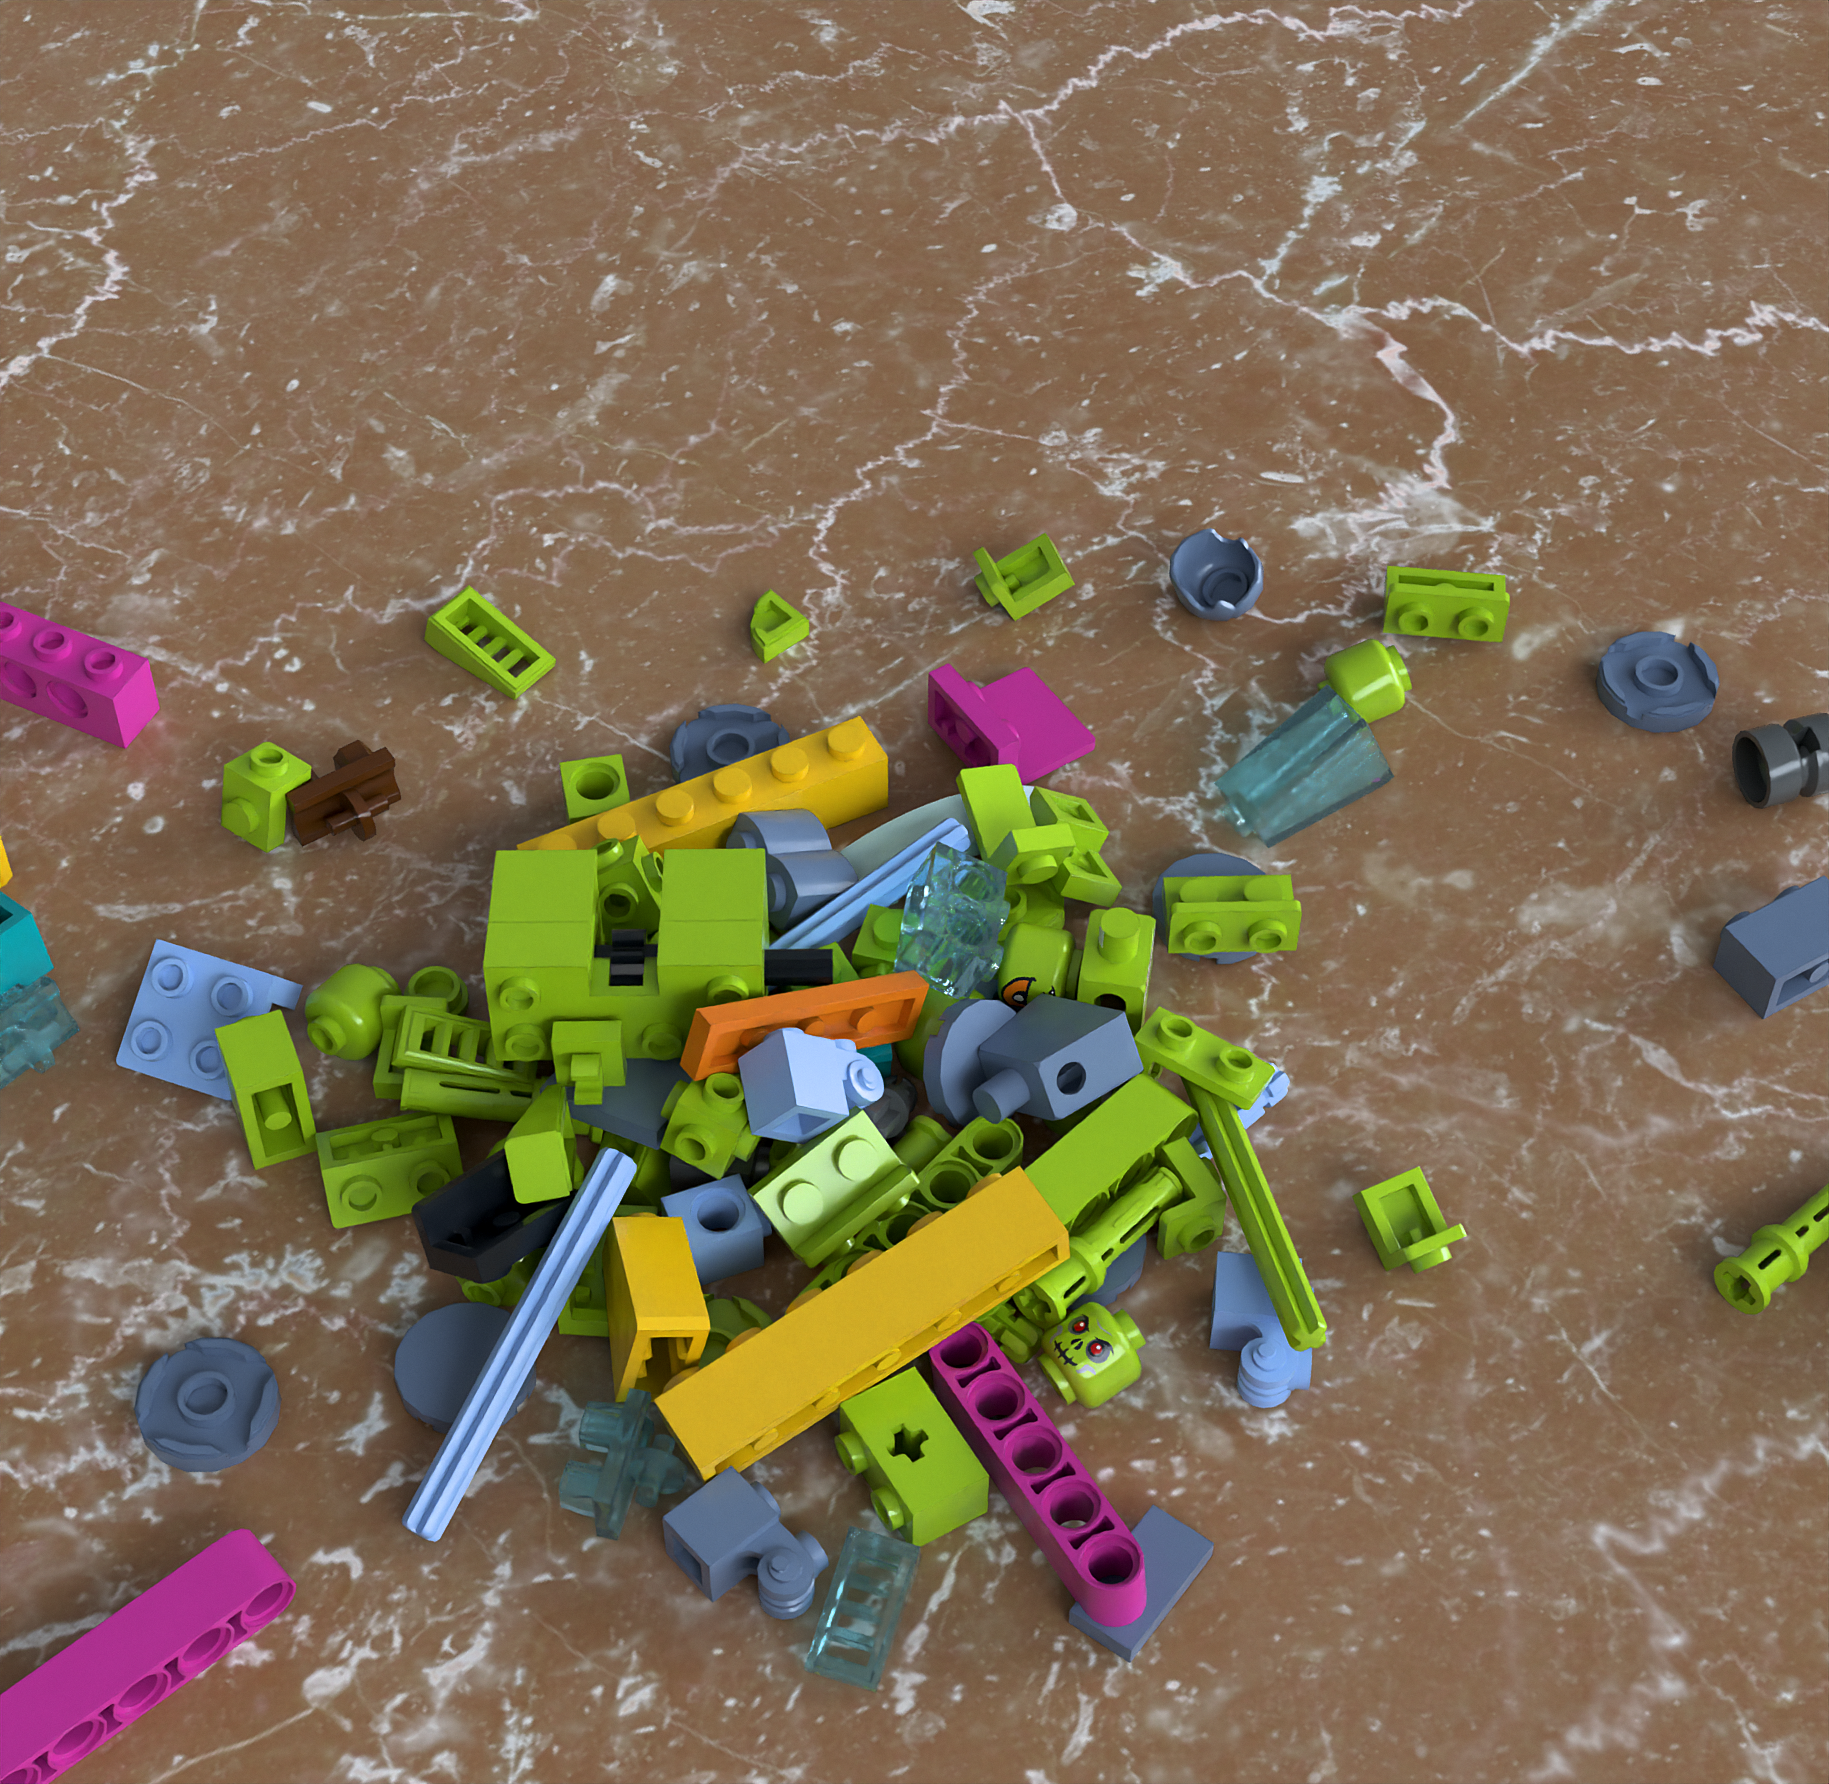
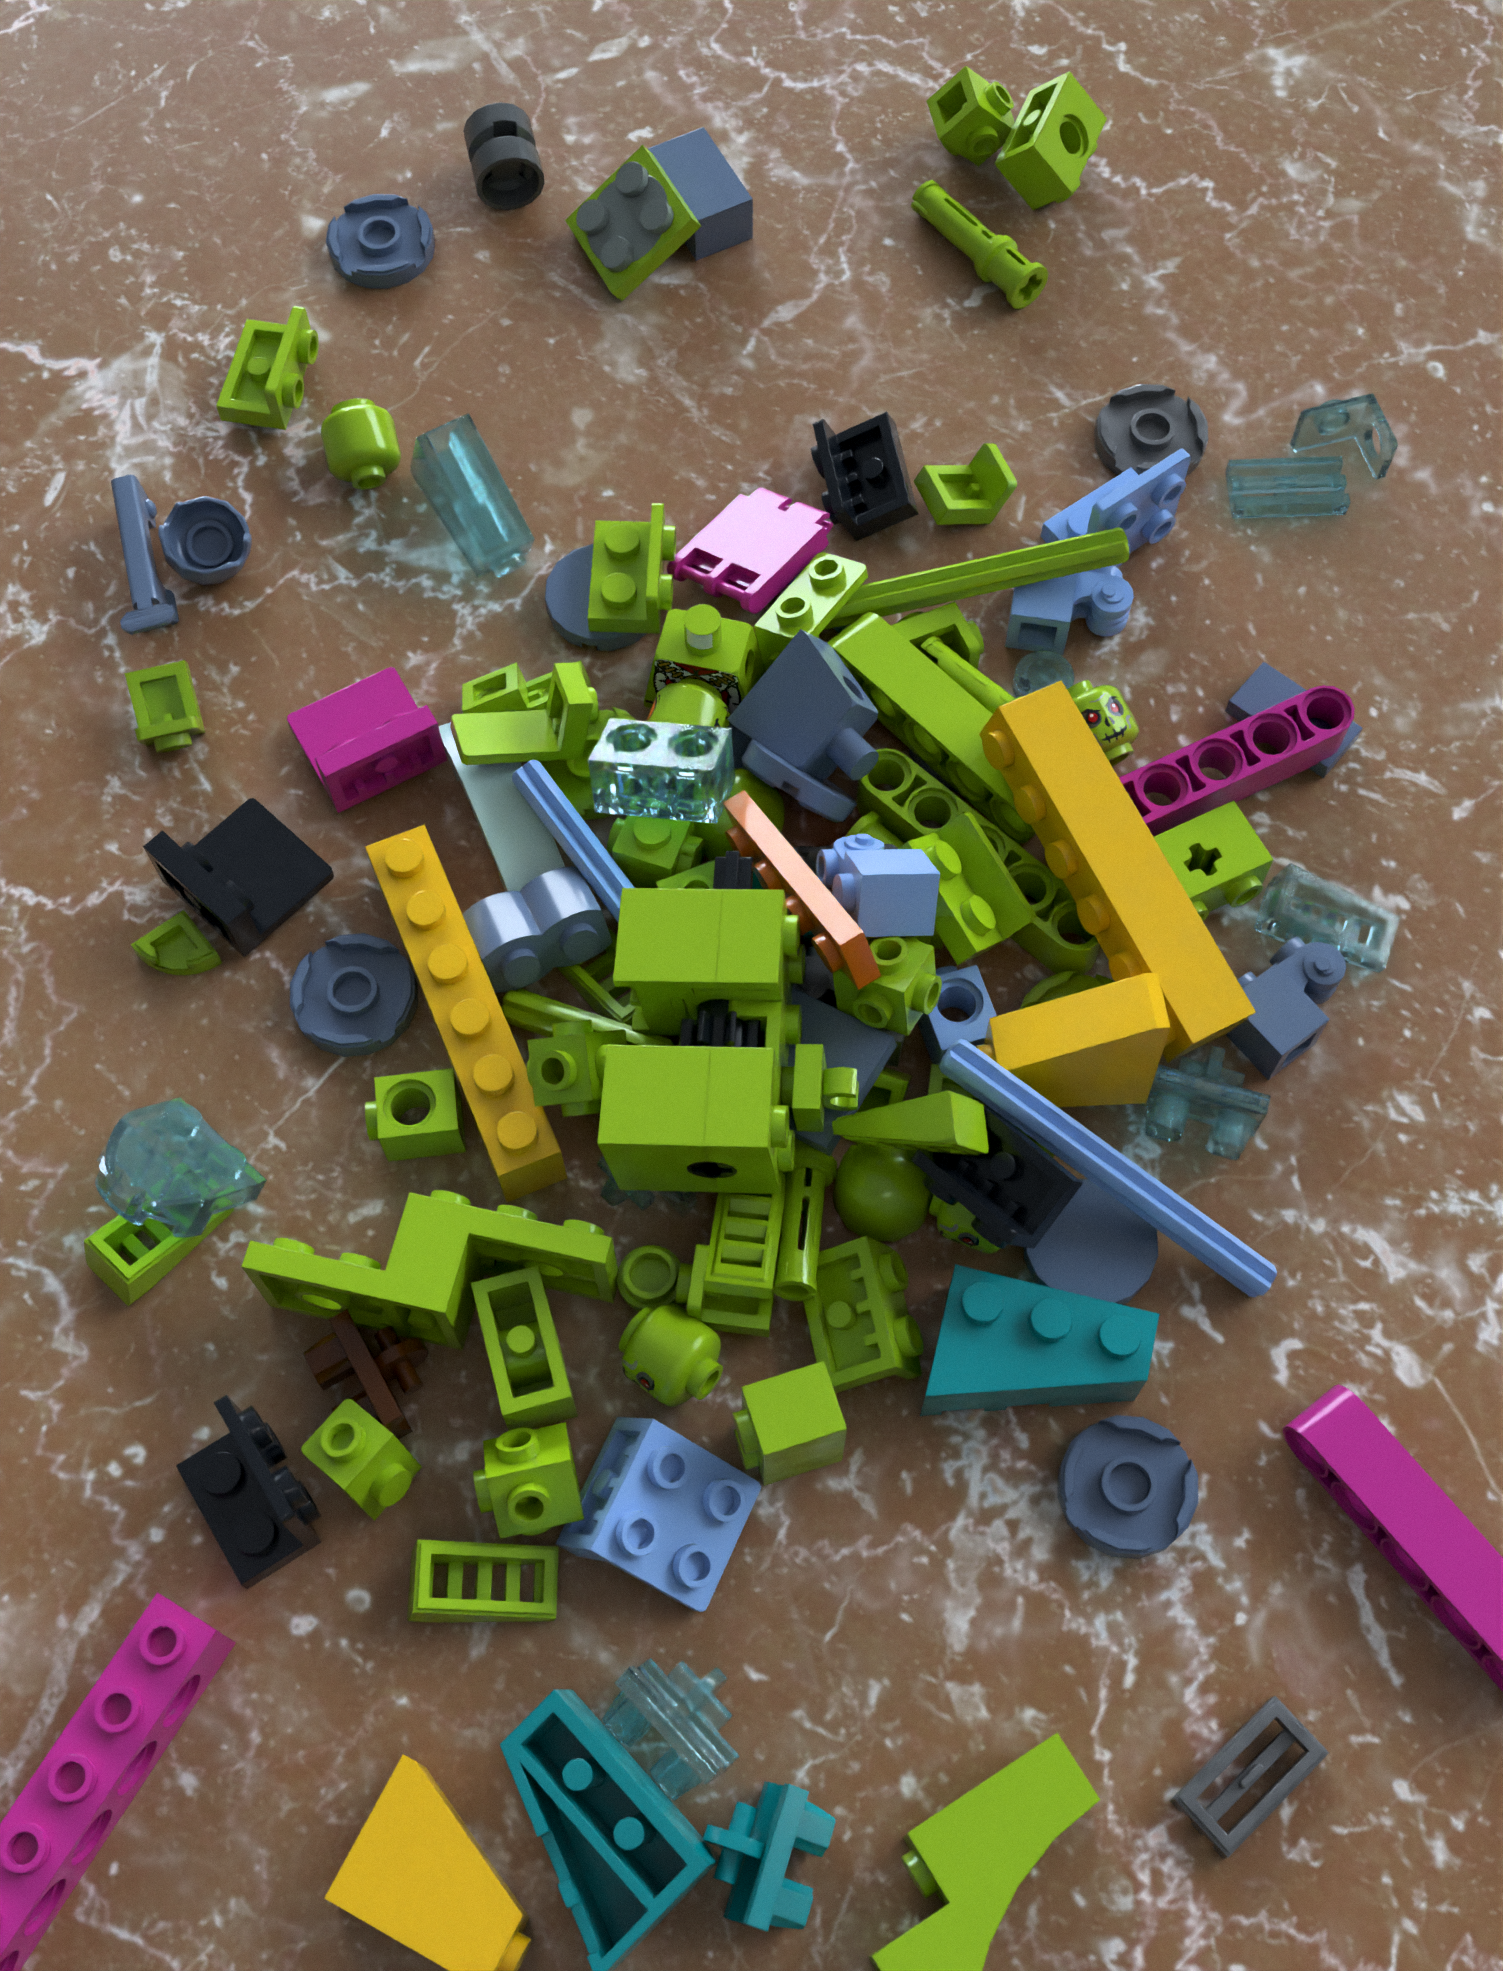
camera: 85 degrees left, 15 degrees up
(154, 854) = (481, 1609): none -> lime slope
(235, 911) = (529, 1480): none -> lime brick
(240, 715) = (247, 1500): none -> black bracket
(348, 1299) = (1033, 1346): none -> teal wedge
(355, 892) = (524, 1349): none -> lime brick
(429, 816) = (431, 1267): none -> lime bracket
(538, 635) = (173, 1169): none -> clear light blue slope
(837, 650) = (242, 874): none -> black bracket
(1150, 543) = (135, 518): none -> sand blue piece
(1165, 1319) = (1041, 670): none -> clear light blue tile
(1283, 1020) = (753, 548): none -> plate
(1392, 1379) = (1135, 502): none -> light blue bracket
(1409, 1118) = (864, 475): none -> black bracket
(1483, 1532) = (1285, 479): none -> clear light blue tile
(1547, 1434) = (1147, 426): none -> flat silver tile
(1603, 1640) = (1346, 420): none -> clear light blue bracket
(1721, 880) = (632, 223): none -> piece

